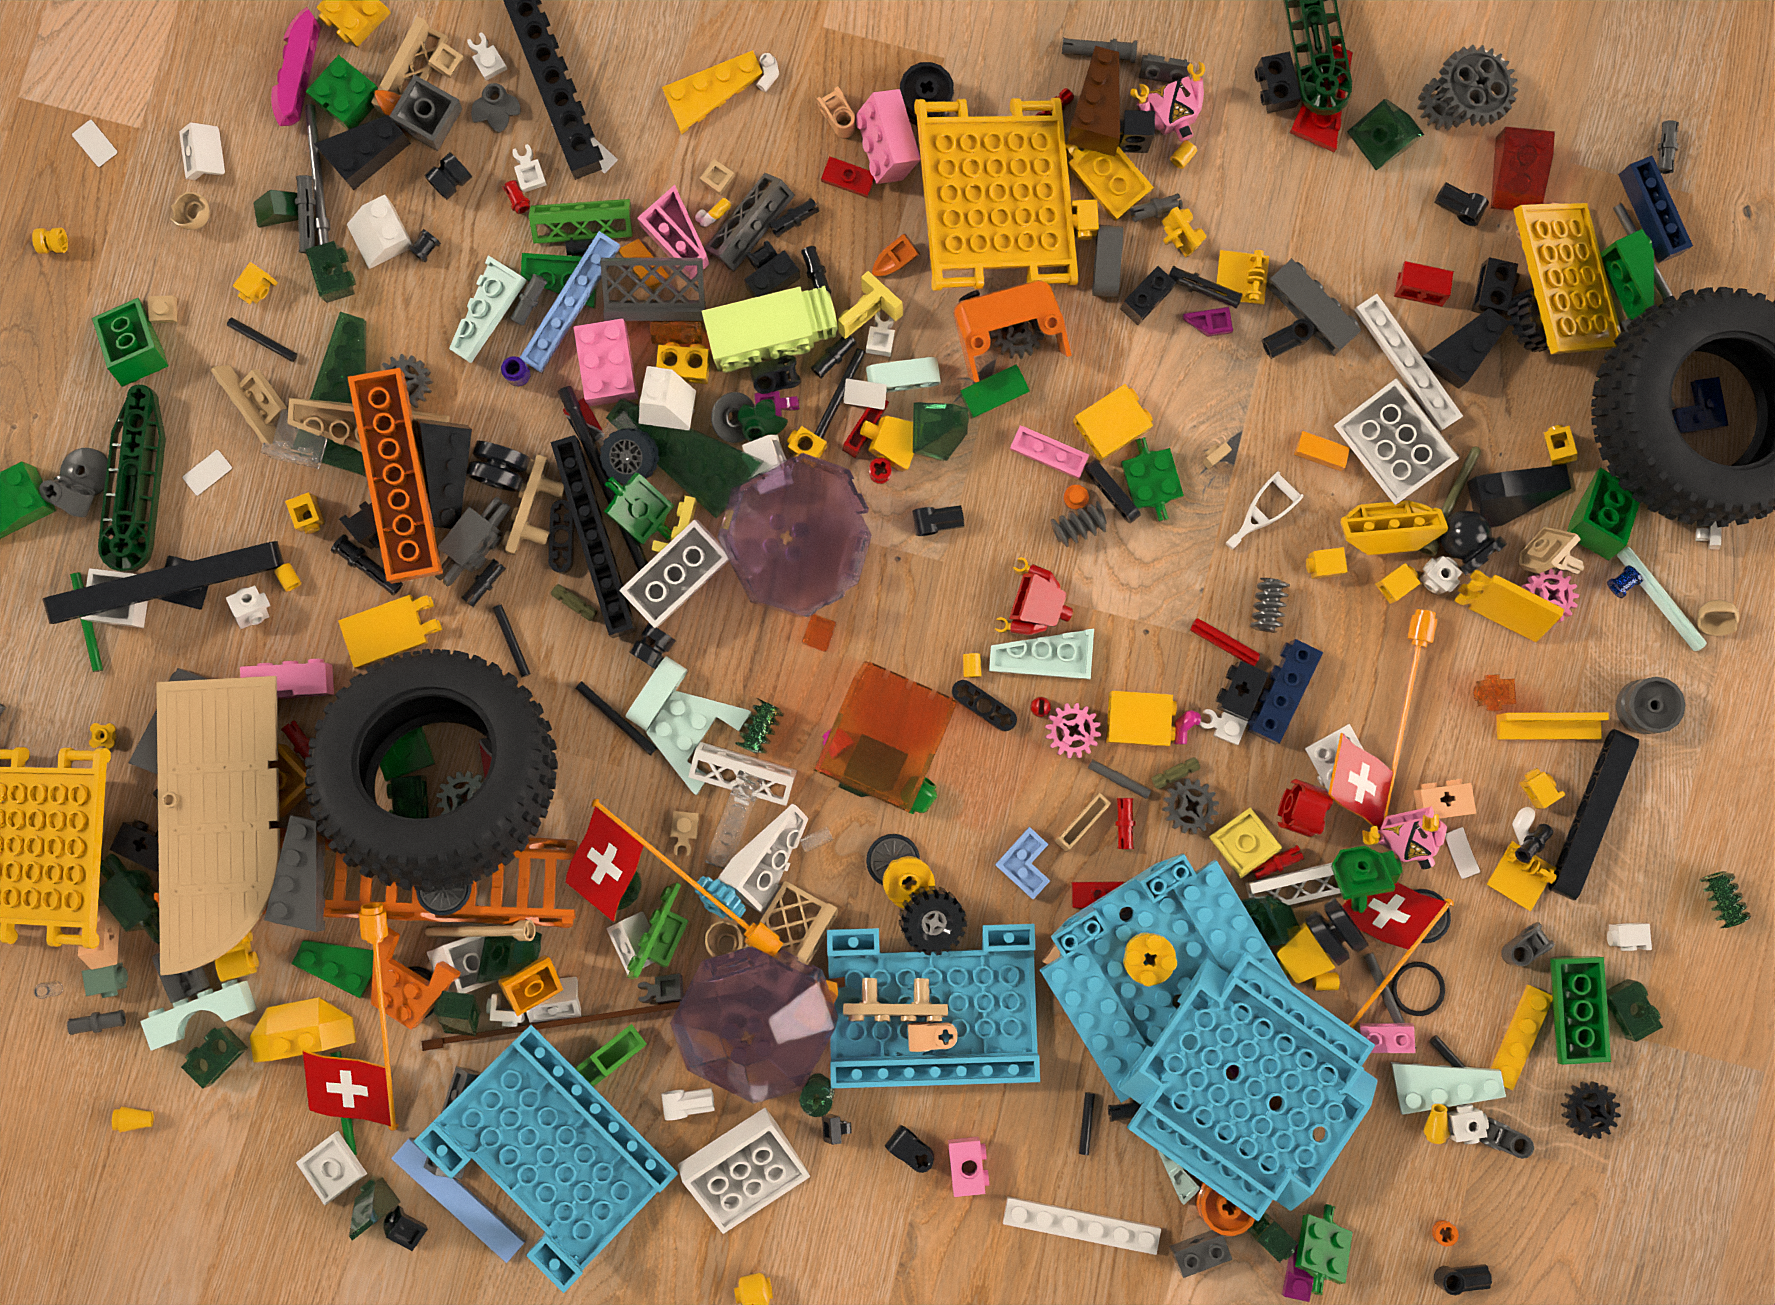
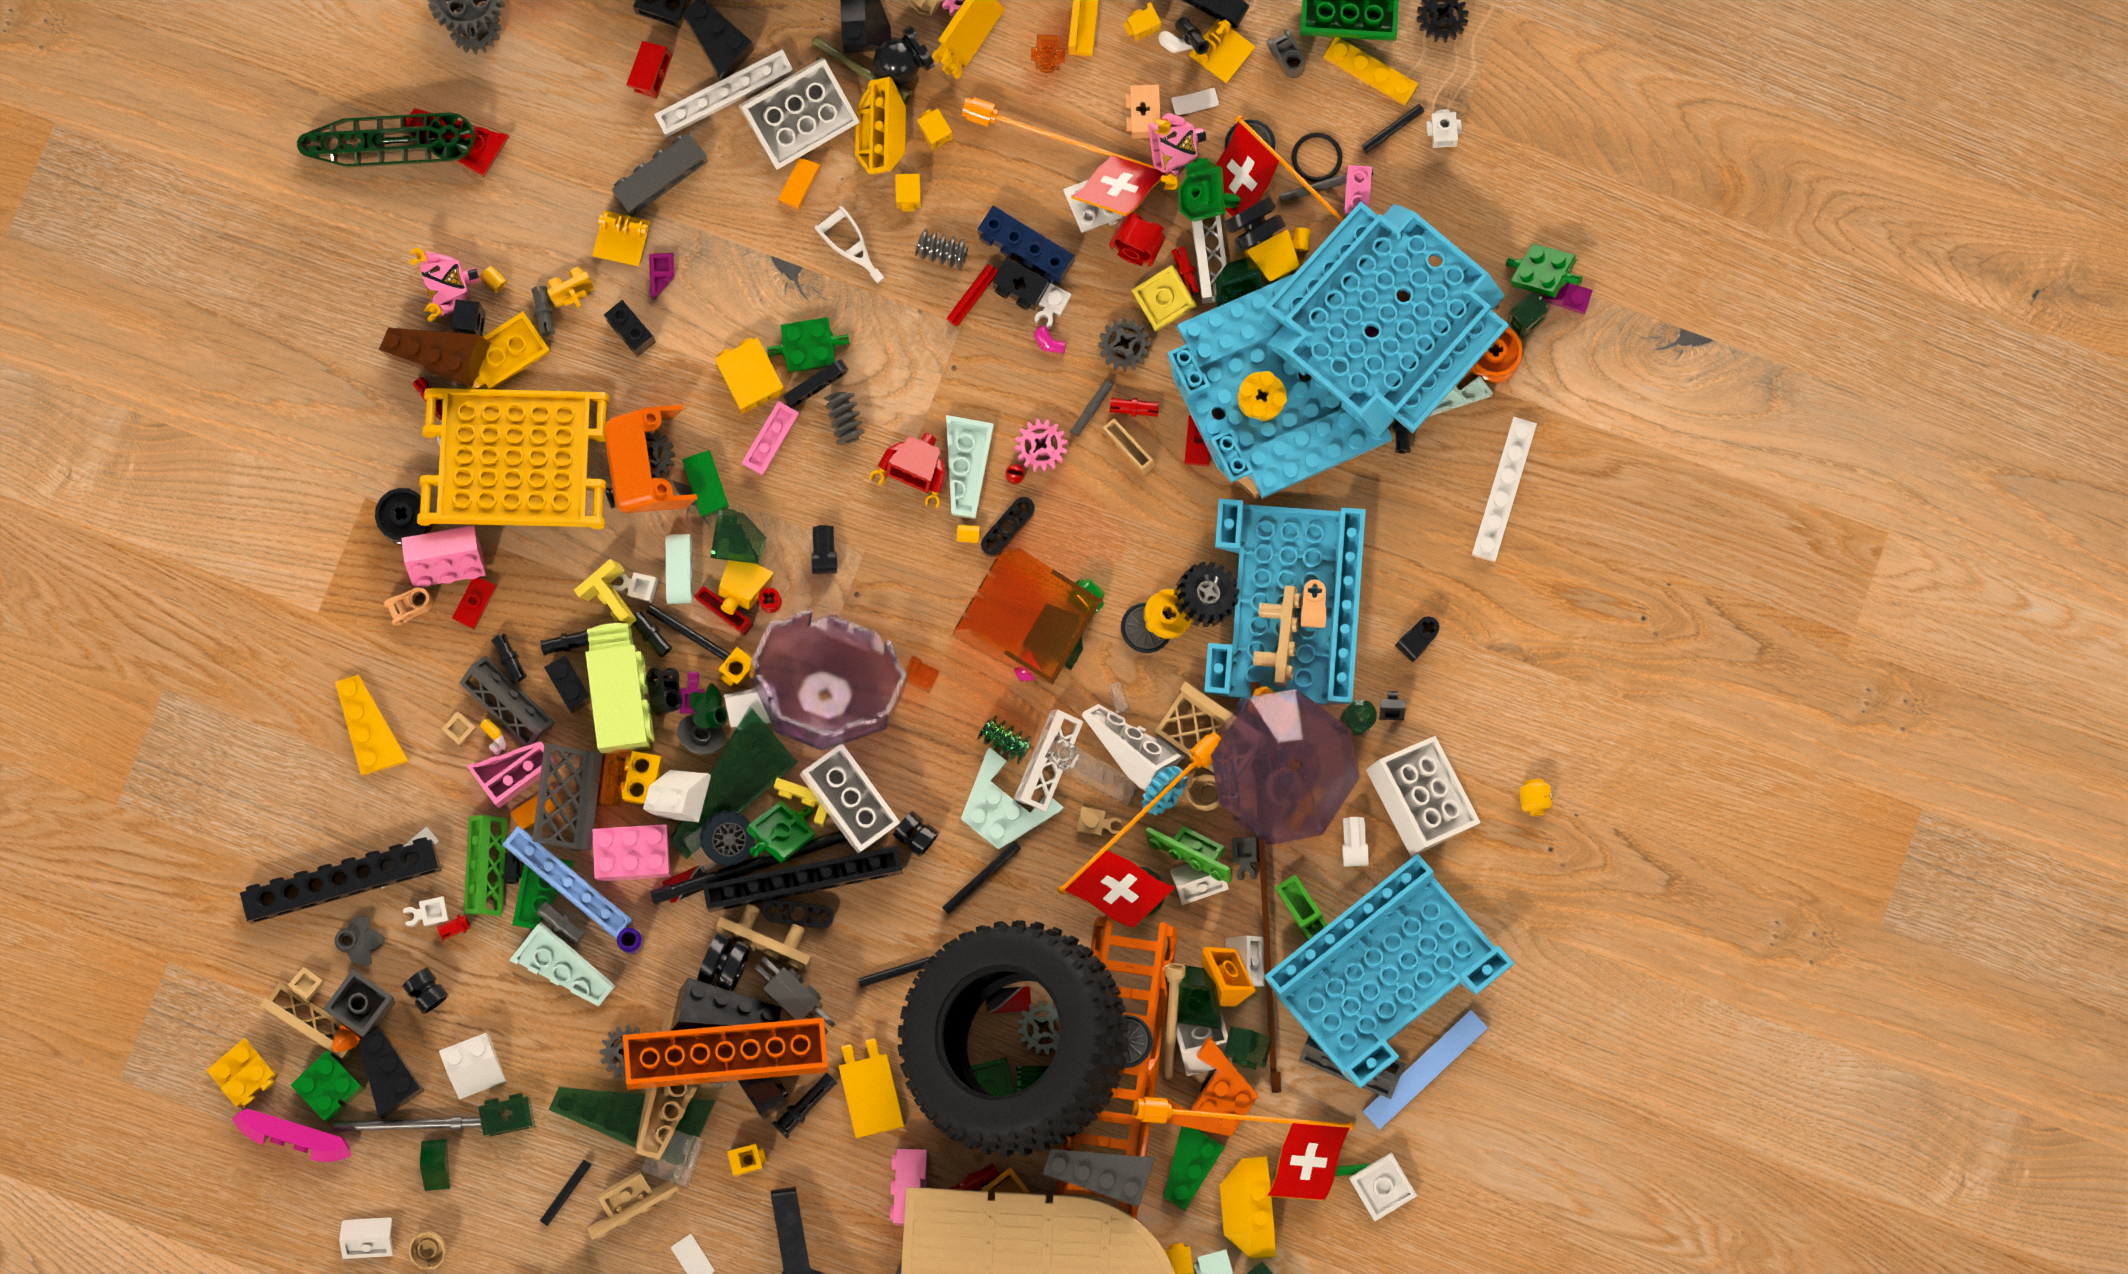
camera: 75 degrees left, 5 degrees down
(248, 606) = (833, 1221): white brick -> none
(253, 284) = (510, 1193): yellow brick -> none
(287, 577) = (807, 1184): yellow hinge -> none
(305, 212) = (446, 1136): dark grey pin -> none
(371, 1205) = (1424, 1147): wedge -> none
(403, 1228) = (1446, 1122): black bracket -> none
(424, 245) = (491, 1021): black bush -> none
(483, 583) = (835, 993): black pin -> none
(487, 58) = (309, 944): white plate -> none
(505, 1015) = (1256, 1004): white bracket -> none
(574, 602) = (864, 907): olive axle -> none
(656, 693) = (962, 835): light aqua beam -> none
(762, 255) = (544, 692): black bush -> none
(770, 71) = (358, 667): white arm -> none
(865, 393) = (693, 606): white sticker -> none
(895, 256) = (560, 564): orange plate -> none
(967, 1182) = (1425, 593): bright pink brick -> none
(1018, 863) = (1158, 510): light blue plate -> none
(1076, 497) = (817, 418): orange plate -> none
(1085, 218) = (546, 378): yellow brick -> none
(1086, 1127) = (1411, 474): black piece -> none
(1107, 261) = (590, 362): dark grey beam -> none
(1126, 50) = (383, 322): dark grey pin -> none
(1140, 718) = (1036, 381): yellow brick -> none
(1155, 68) = (404, 296): dark grey hinge -> none
(1175, 773) = (1091, 354): olive axle -> none
(1200, 1253) = (1538, 382): dark grey brick -> none
(1215, 454) = (791, 282): tan plate -> none
(1233, 298) = (641, 248): black pin -> none
(1283, 82) = (434, 175): black brick -> none
(1286, 338) = (688, 203): black piece -> none
(1385, 133) = (498, 87): clear green slope -> none
(1424, 1085) = (1407, 155): light aqua wing -> none
(1433, 578) = (932, 96): white brick -> none
(1437, 1125) = (1443, 155): yellow cone -> none
(1438, 1237) = (1540, 153): orange bush -> none
(1464, 1278) = (1584, 148): black piece -> none
(1467, 206) = (579, 18): black piece -> none
(1503, 1138) = (1460, 99): dark grey piece -> none

